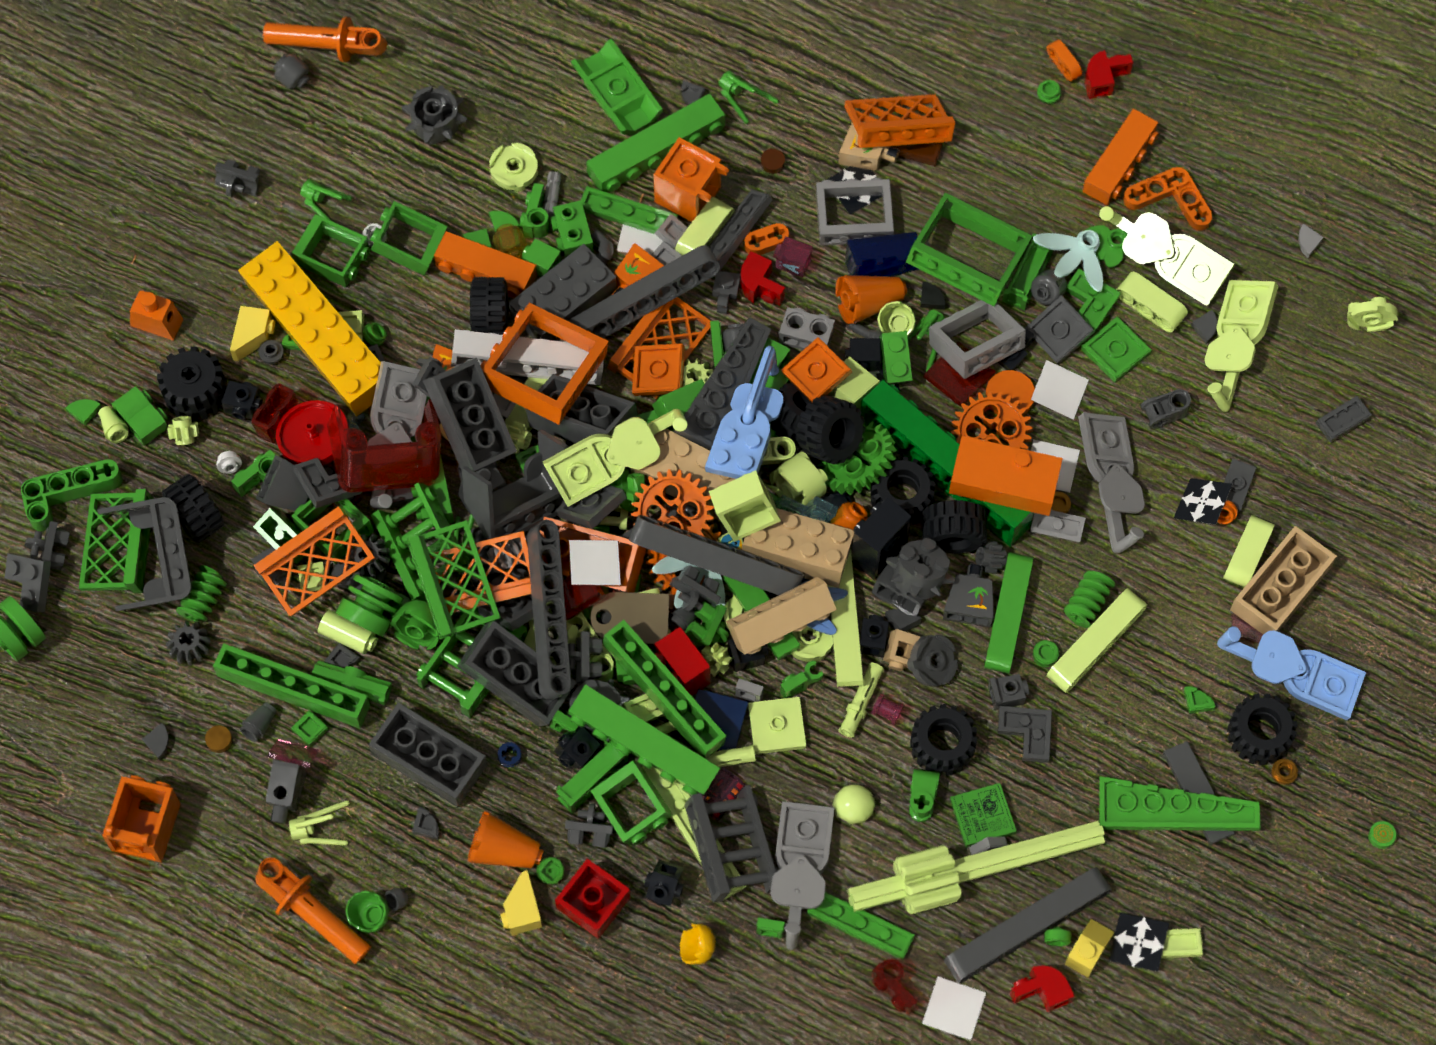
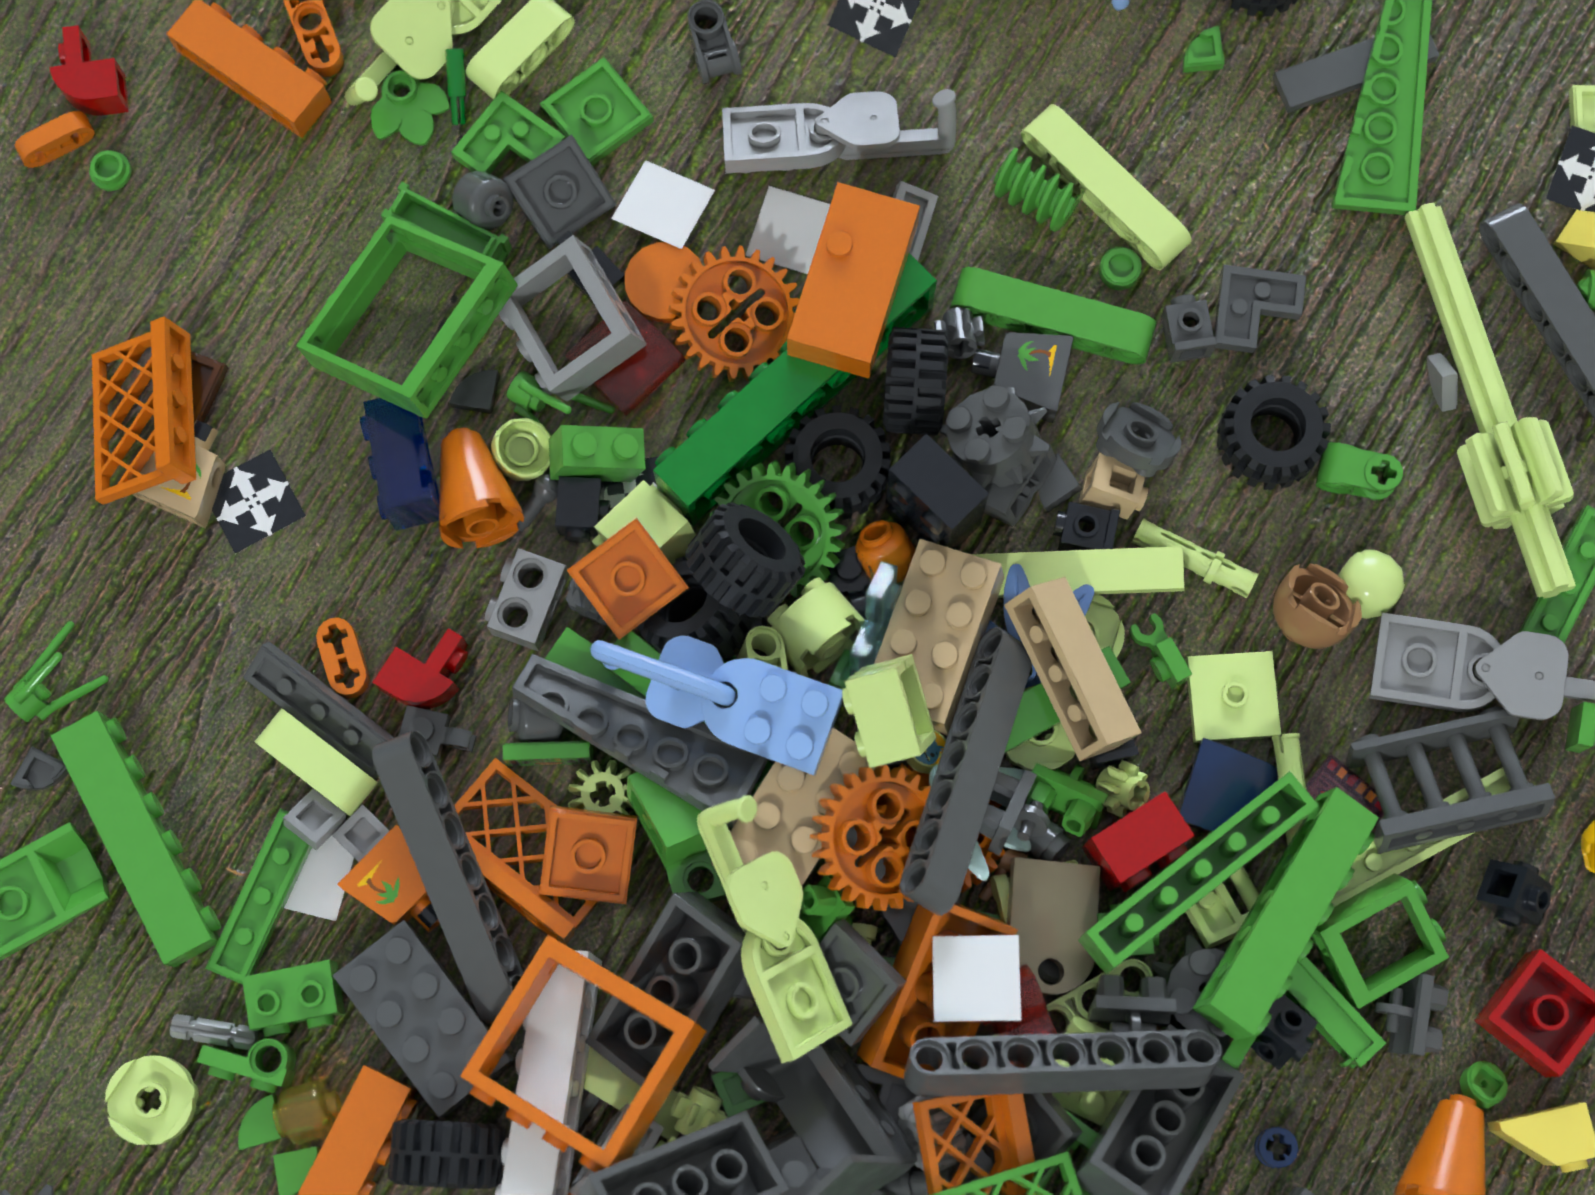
camera: 85 degrees left, 10 degrees up
(542, 255) = (345, 1055): bright green brick -> none
(605, 246) = (331, 939): dark grey arm -> none
(687, 179) = (227, 779): orange container -> none
(749, 691) = (1178, 736): light grey tile -> none
(772, 161) = (189, 637): reddish brown tile -> none
(793, 256) = (383, 613): clear pink brick -> none
(834, 763) = (1314, 607): none -> medium nougat cylinder
(852, 187) = (350, 505): light grey window -> none
(887, 709) = (1213, 517): clear pink bush -> none
(982, 814) = (1389, 386): bright green tile -> none
(1078, 252) = (422, 148): light aqua plant -> none
(1123, 268) = (456, 83): none -> green pin

